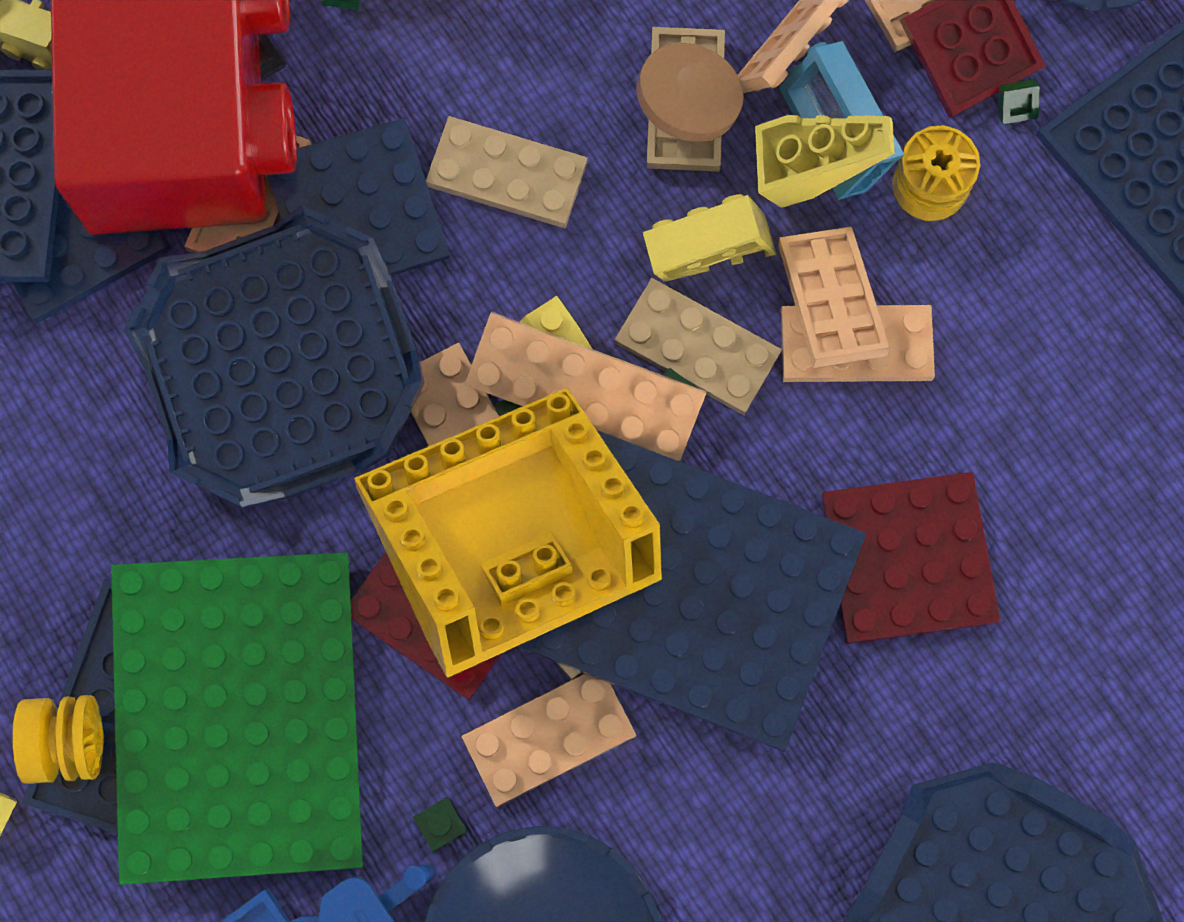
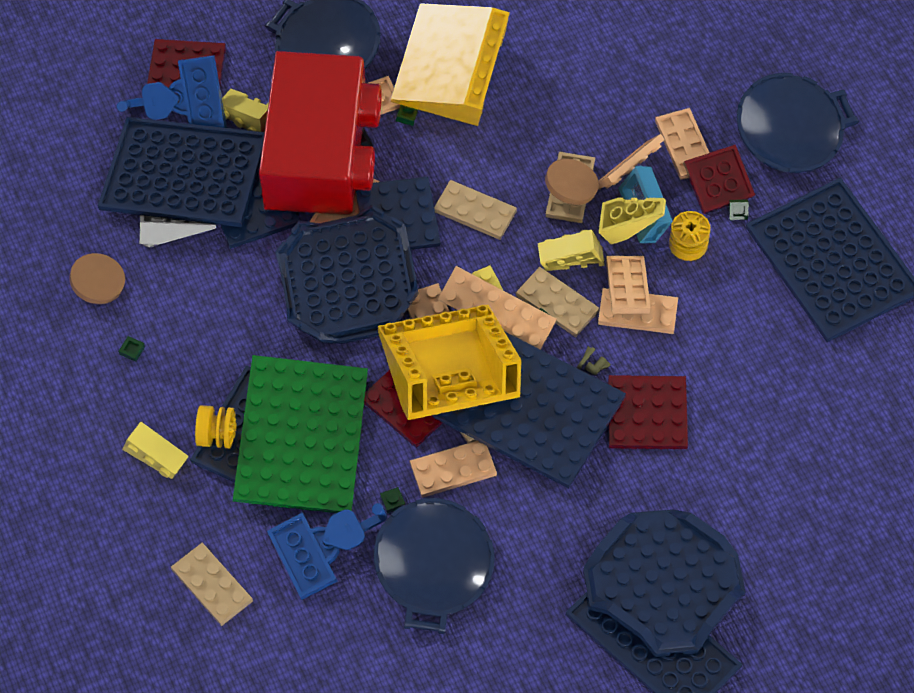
camera: 10 degrees right, 15 degrees down
(791, 482) = (594, 369): none -> olive piece

